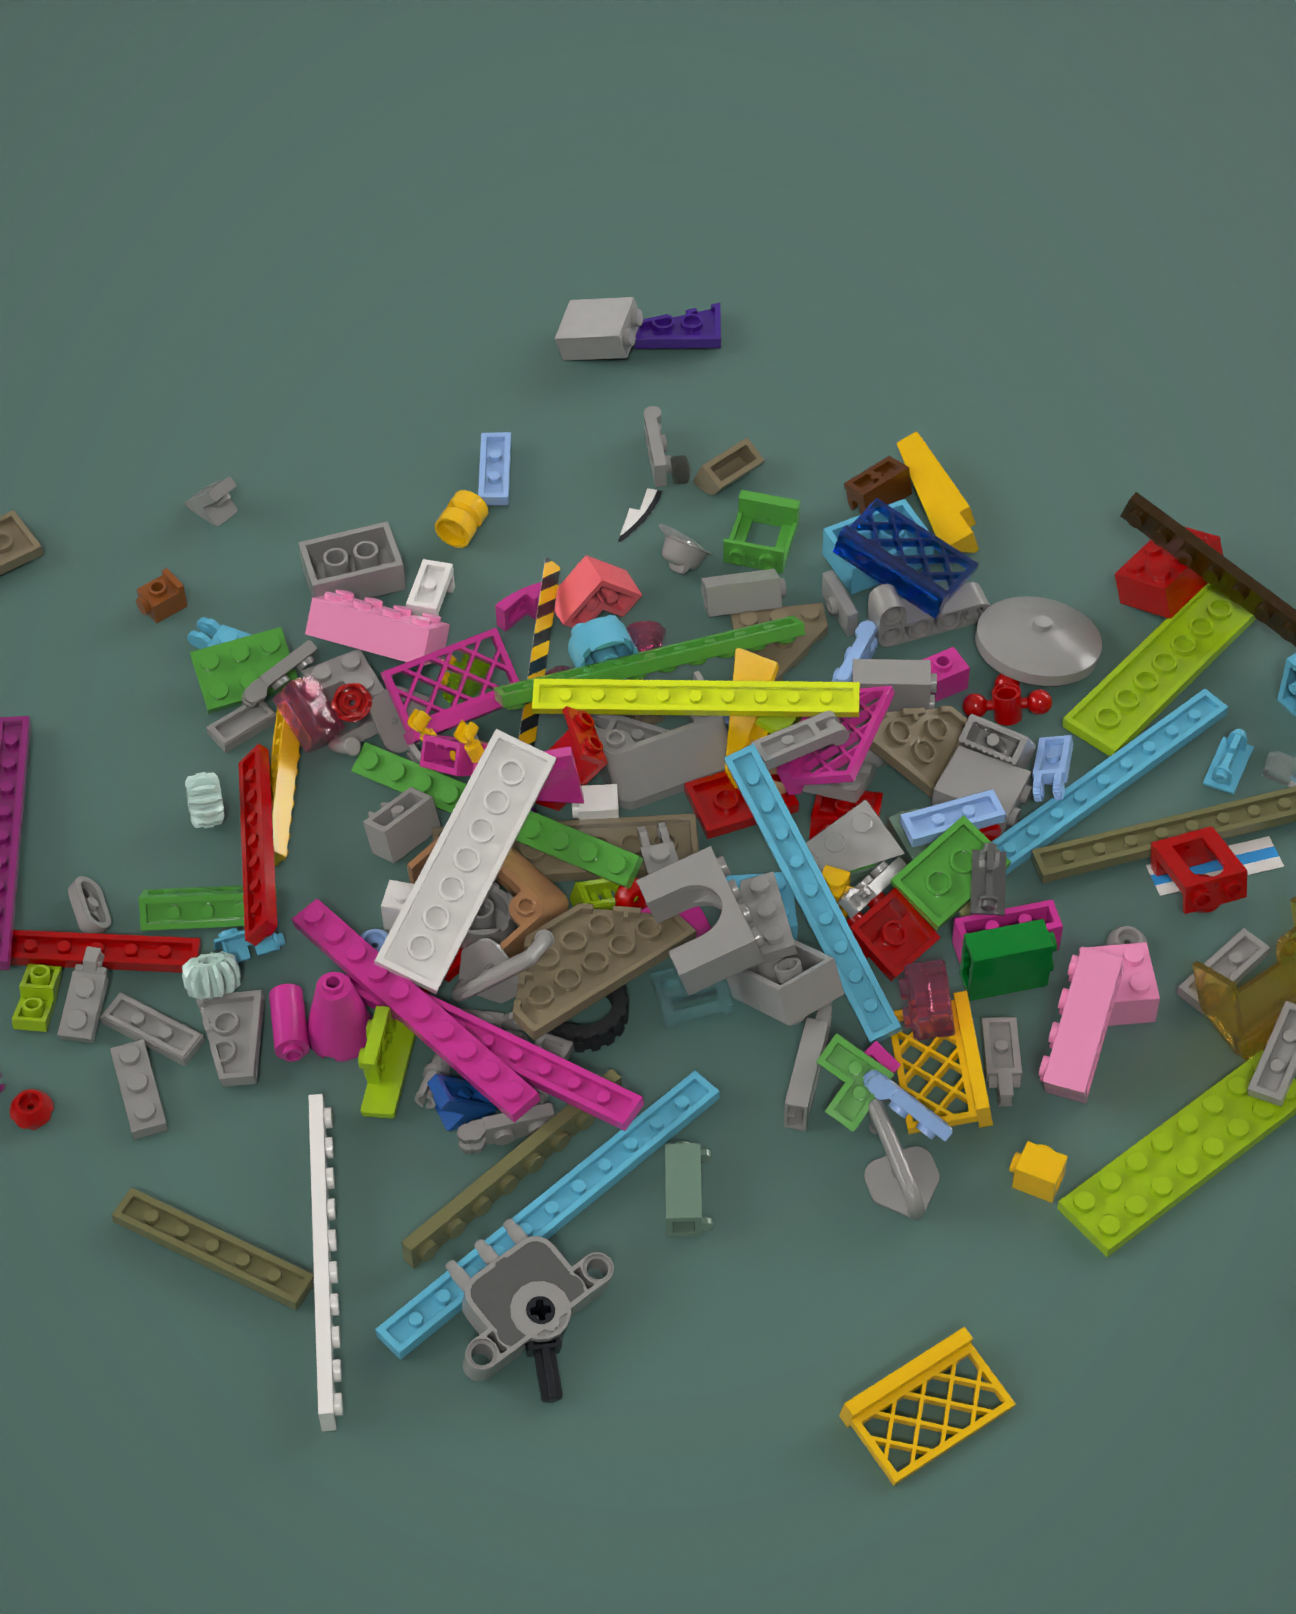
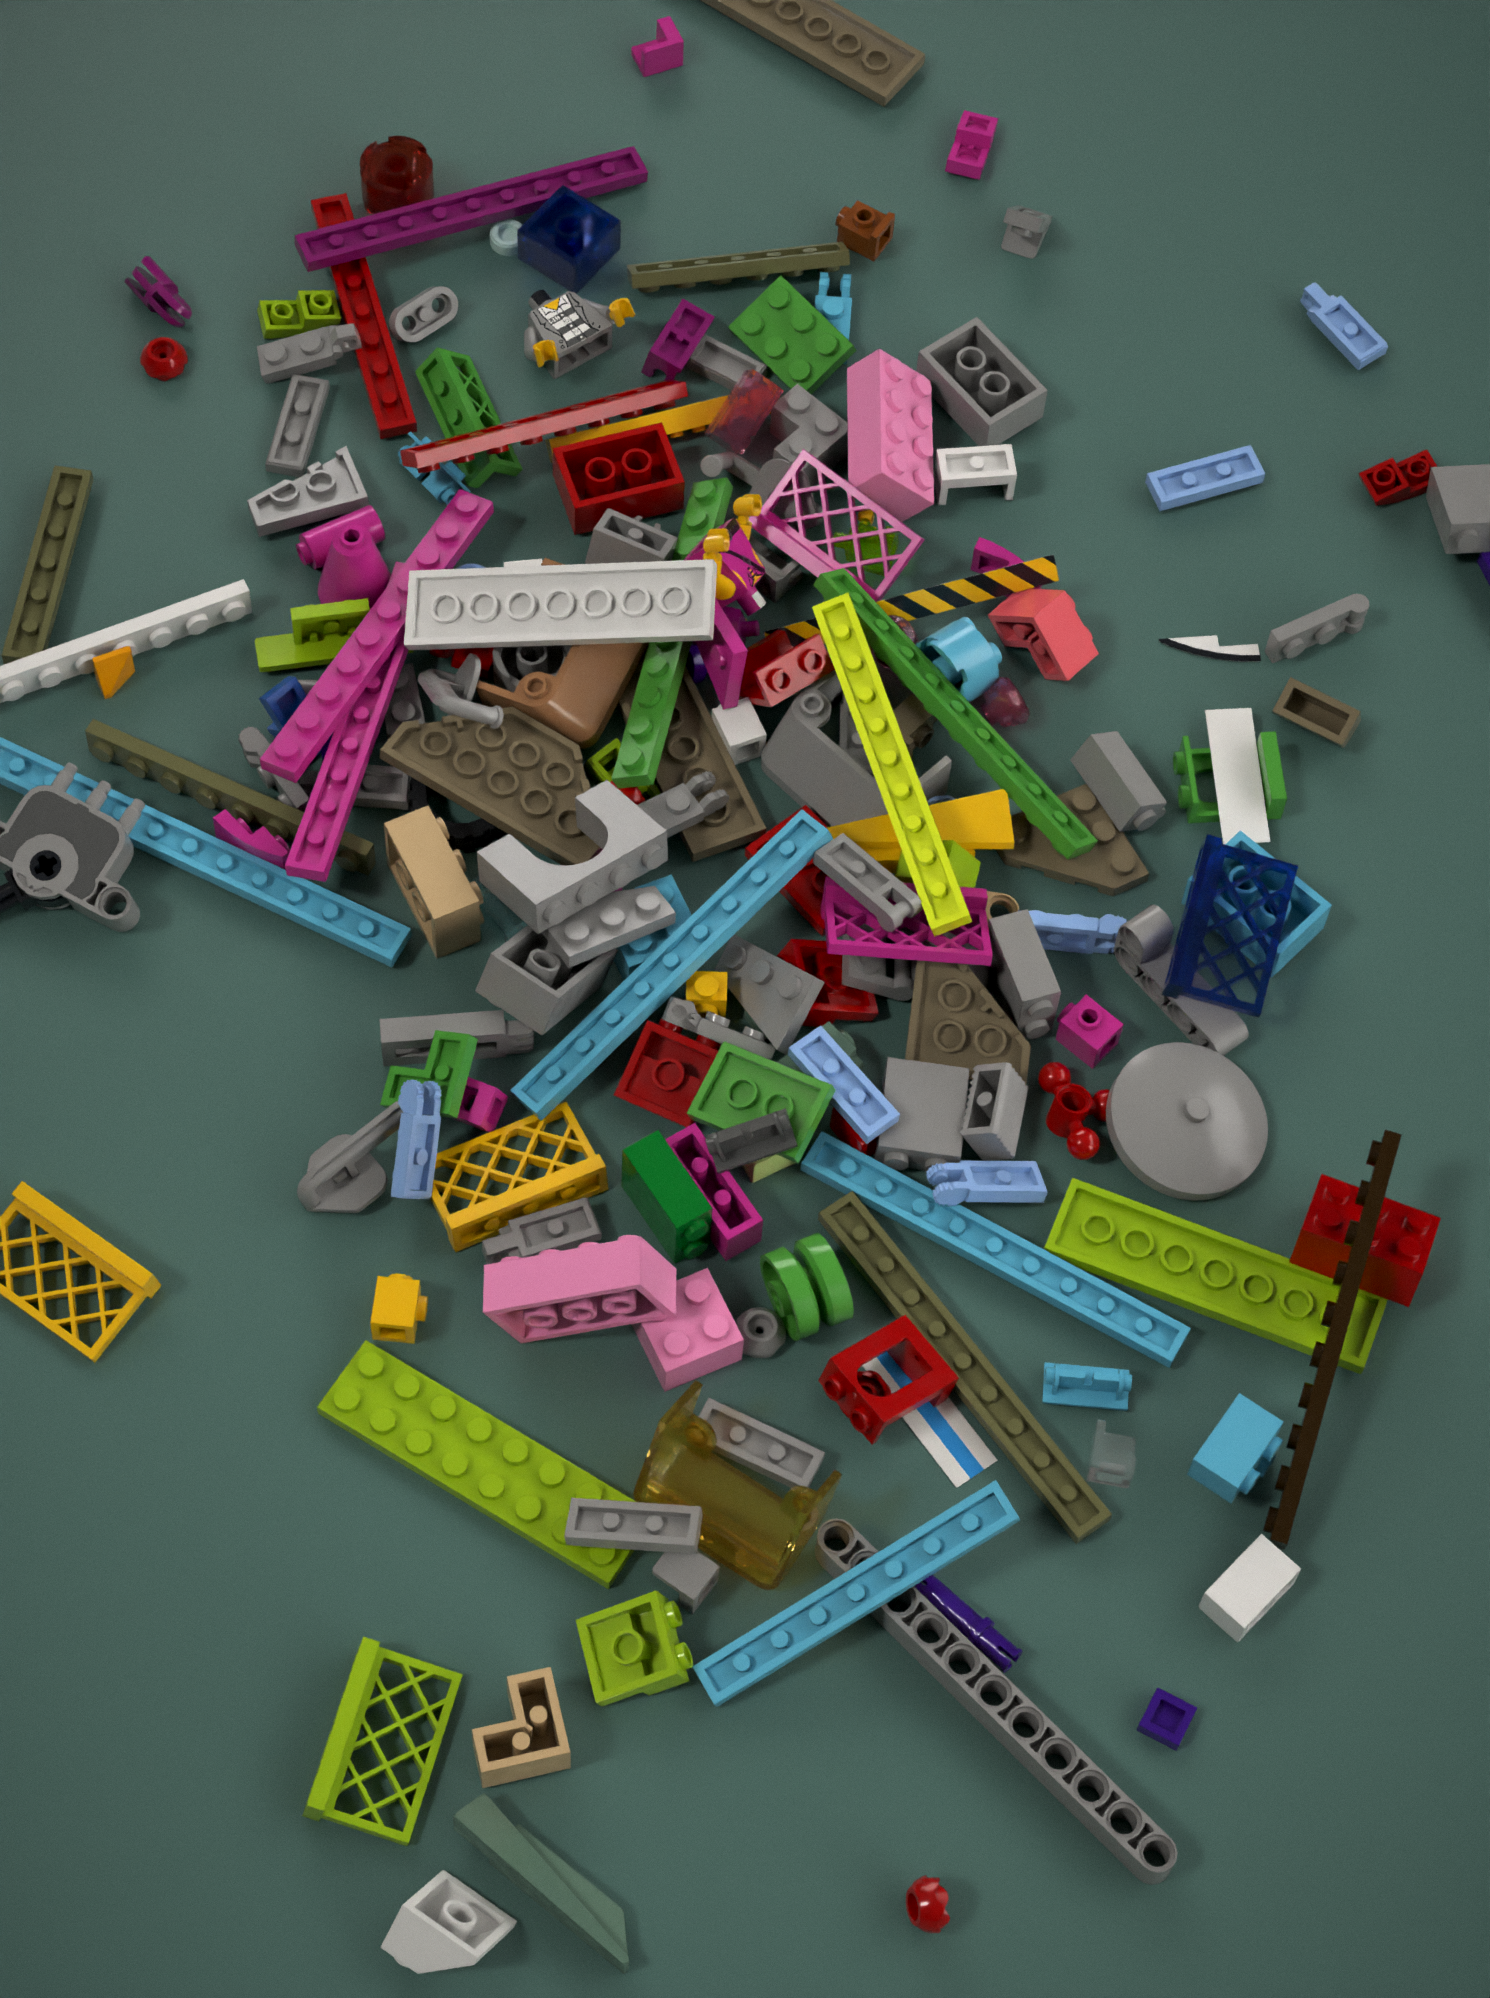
camera: 65 degrees right, 10 degrees up
(36, 832) = (504, 237): none -> light aqua tile
(72, 782) = (569, 239): none -> clear blue brick
(109, 511) = (971, 145): none -> dark pink slope
(138, 1089) = (219, 439): light grey plate -> none
(153, 686) = (752, 265): none -> olive plate
(160, 808) = (570, 330): none -> torso
(204, 800) = (592, 361): light aqua gear -> none
(209, 743) = (677, 340): none -> magenta hinge
(211, 975) = (368, 446): light aqua gear -> none
(277, 675) = (782, 365): light grey hinge -> none
(327, 814) = (621, 472): none -> red brick
(347, 1226) = (113, 670): none -> light orange slope
(348, 693) = (759, 432): red plate -> none
(398, 353) = (1343, 326): none -> light blue hinge
(461, 518) = (1104, 467): yellow wheel -> none
(545, 364) = (1398, 481): none -> red slope
(574, 1152) = (259, 843): none -> dark pink slope
(665, 1037) = (434, 881): none -> tan brick
(680, 469) = (1292, 663): clear smoke tile -> none
(681, 551) = (1166, 699): light grey piece -> none
(684, 1189) = (256, 962): sand green brick -> none
(760, 528) = (1237, 774): none -> white sticker
(839, 603) = (1154, 887): light grey plate -> none
(885, 480) = (1361, 882): reddish brown hinge -> none
(928, 1000) = (579, 1129): clear pink brick -> none
(941, 499) = (1377, 953): yellow wedge -> none
(1111, 892) = (807, 1286): none -> bright green wheel

